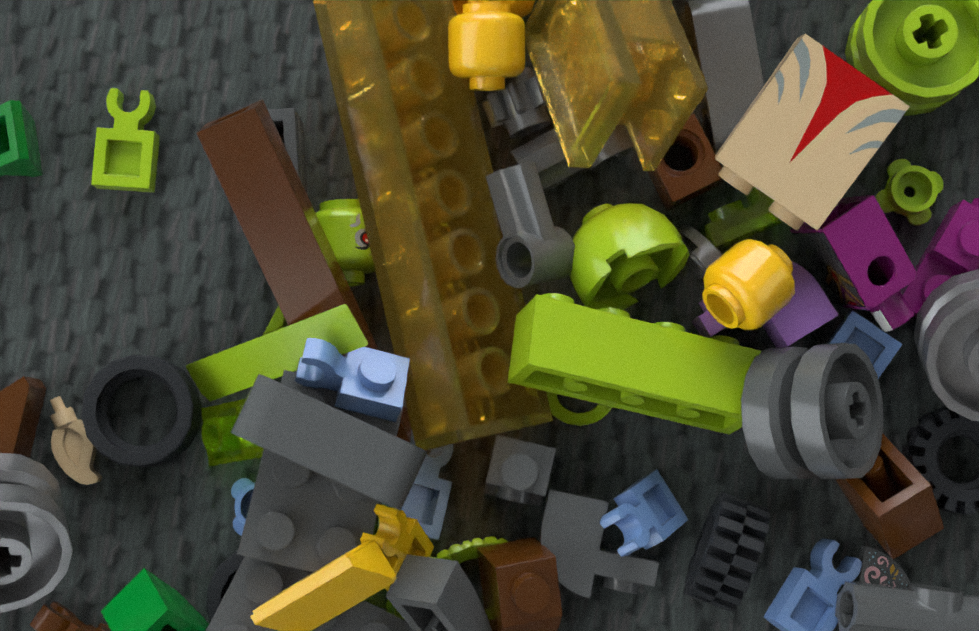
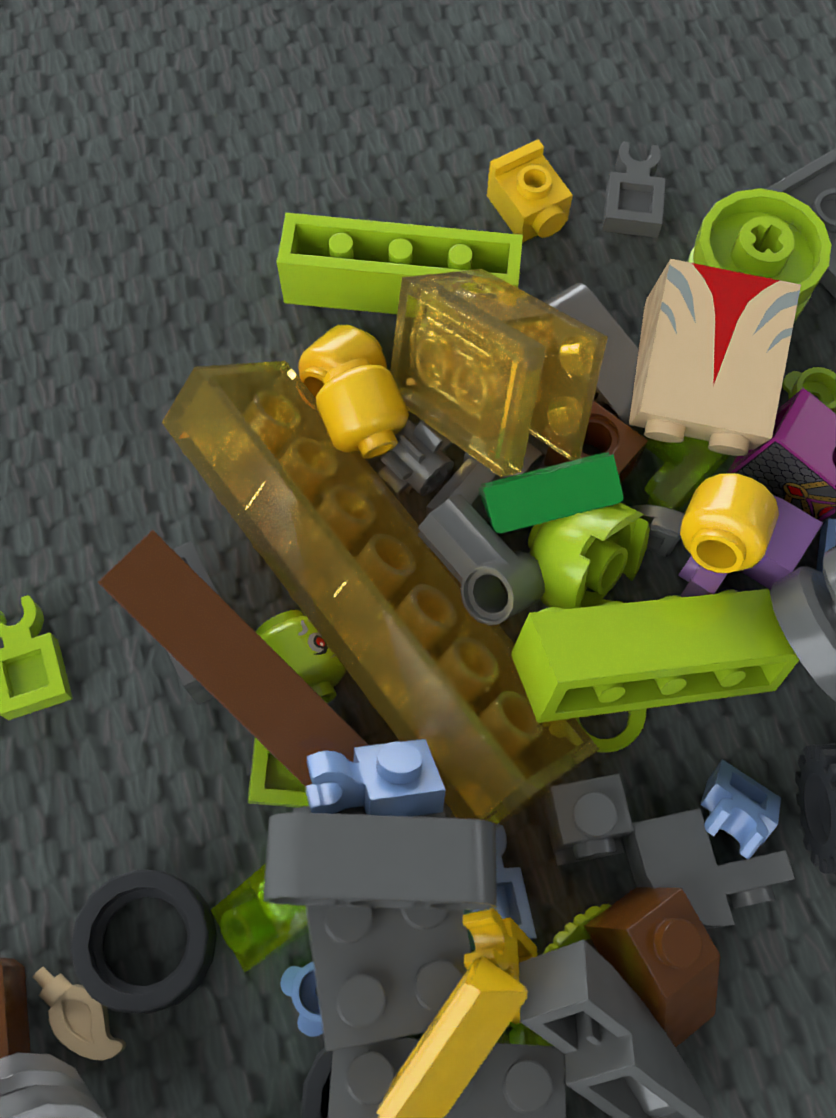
camera: 30 degrees left, 15 degrees down
(273, 353) = (244, 830): lime sticker -> none
(612, 193) = (552, 492): none -> green slope

